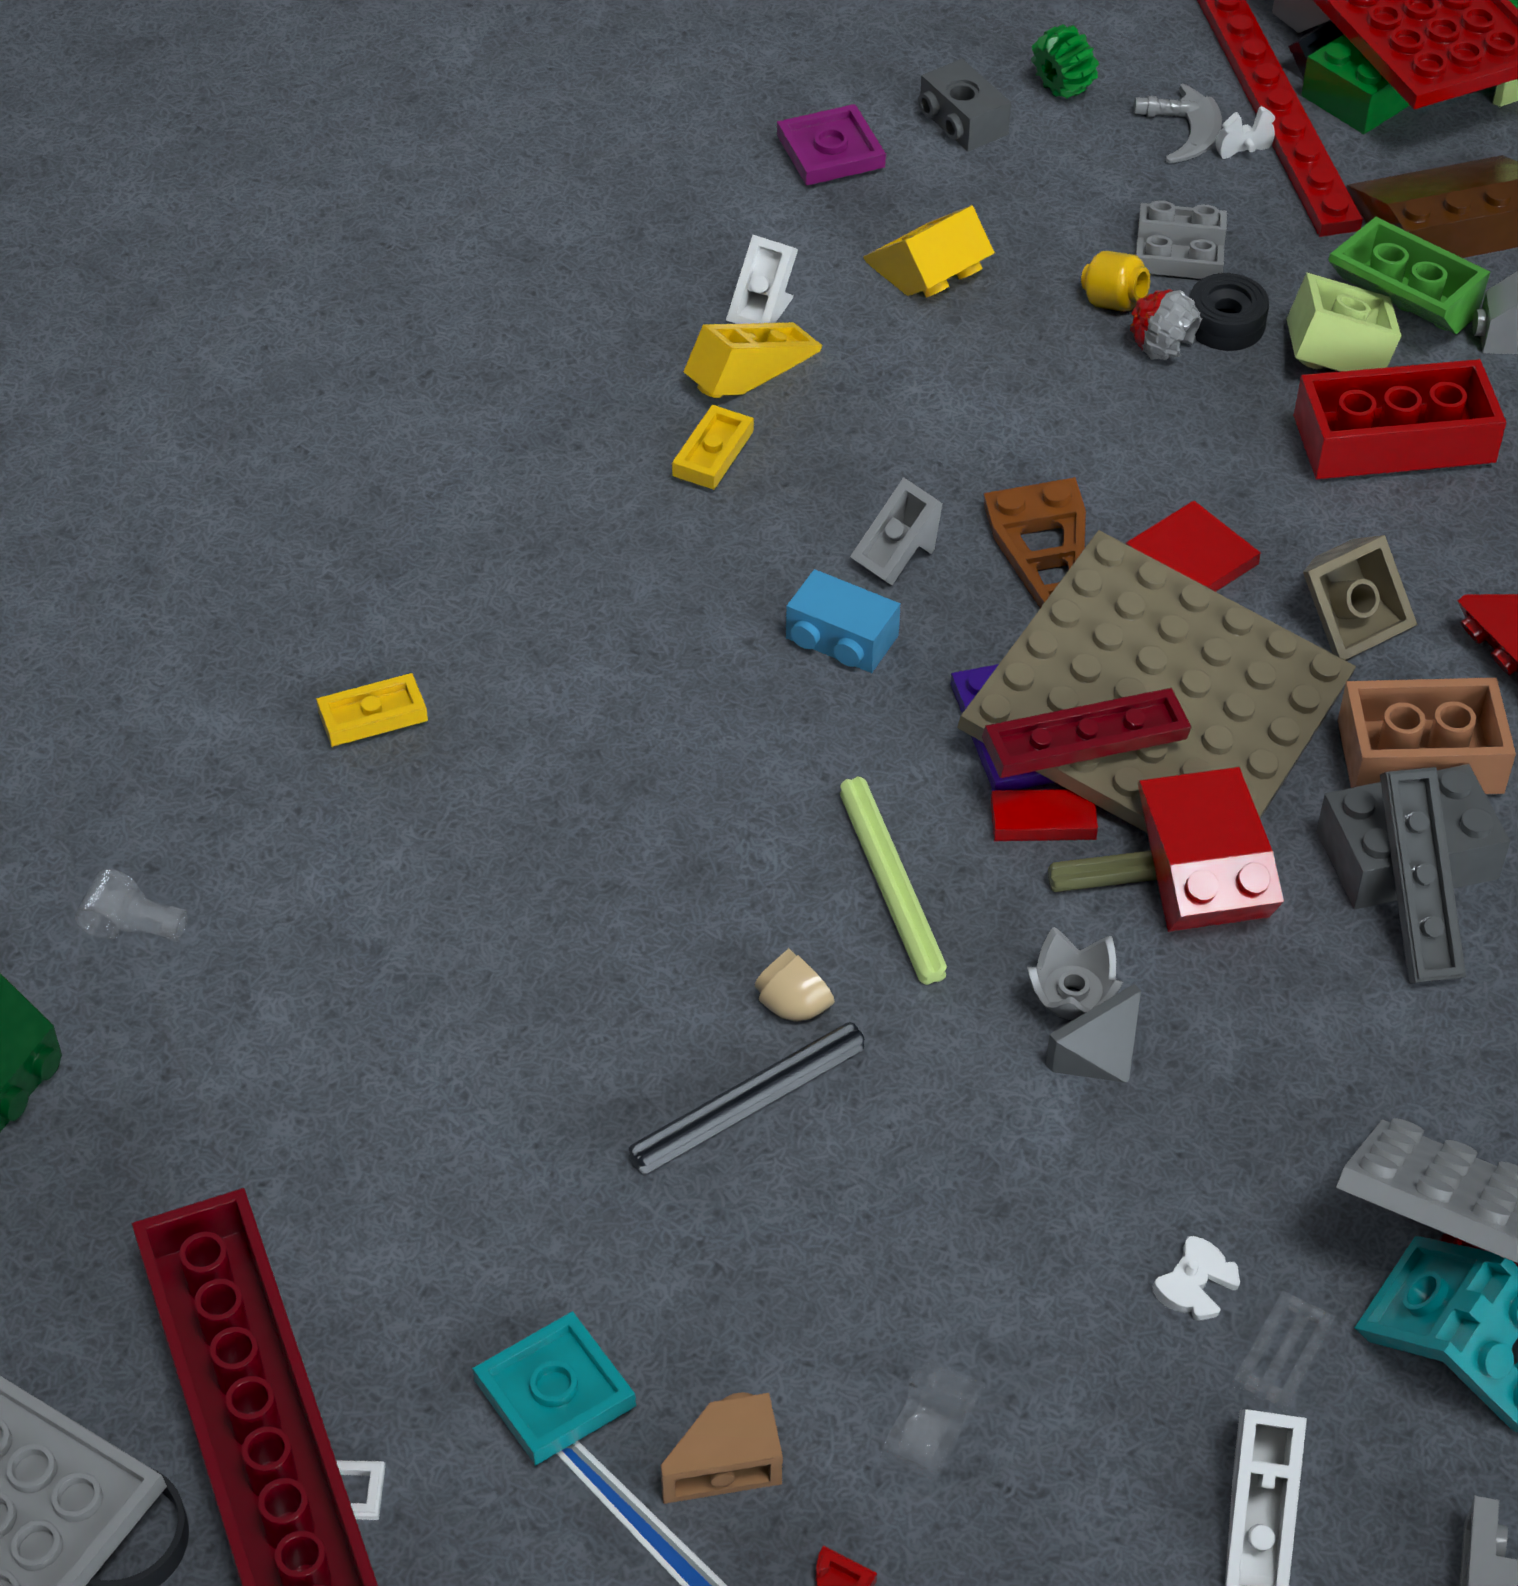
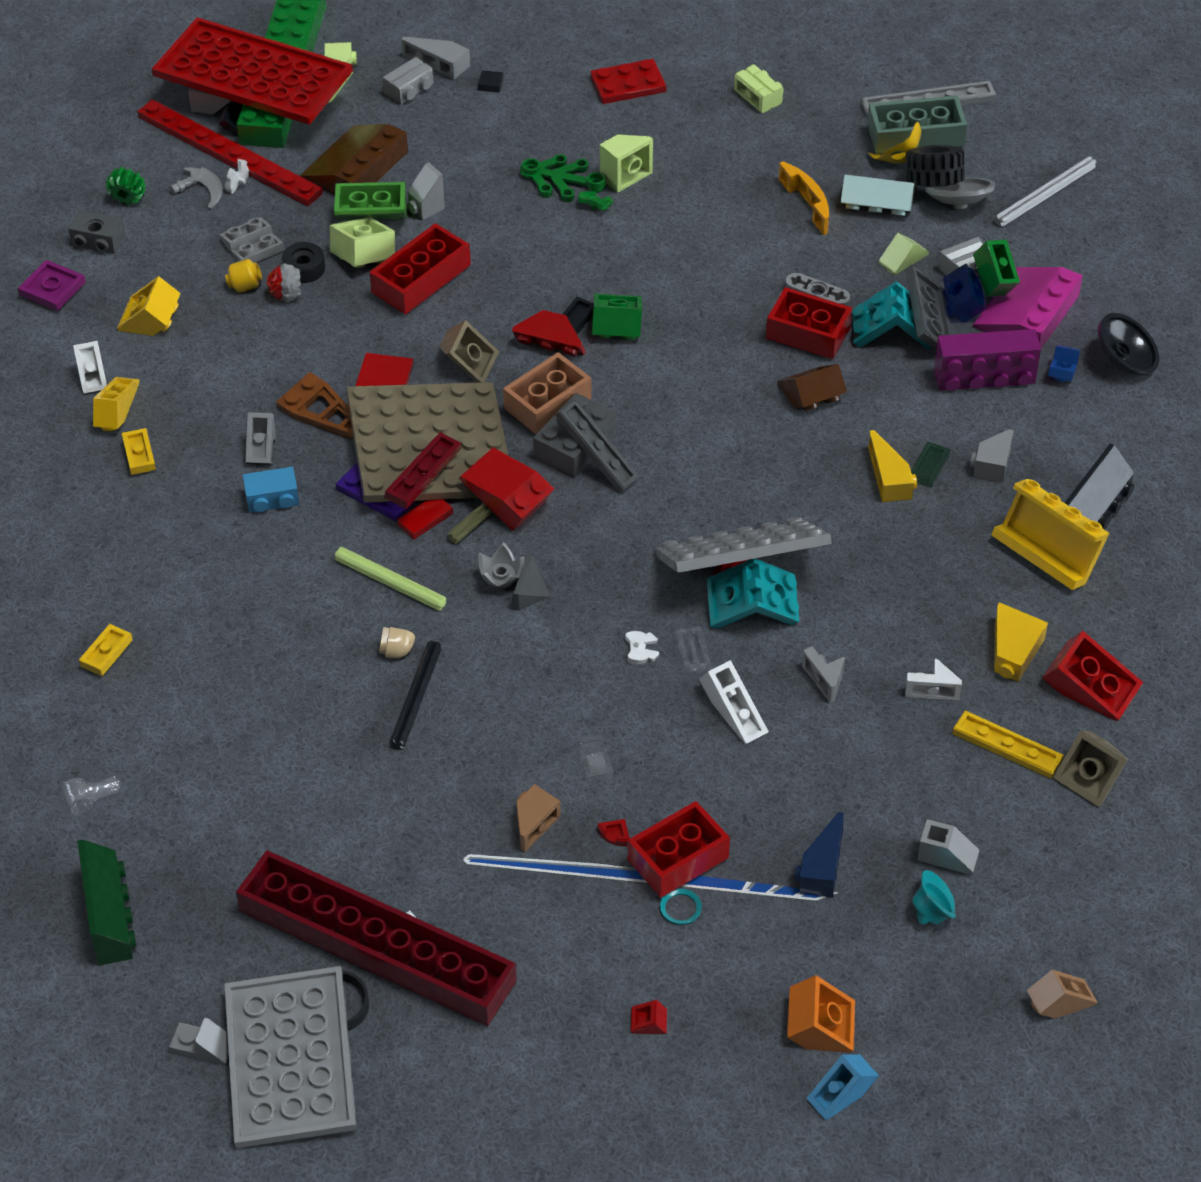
camera: 40 degrees left, 0 degrees up
(554, 1387) = (449, 840): teal plate -> none

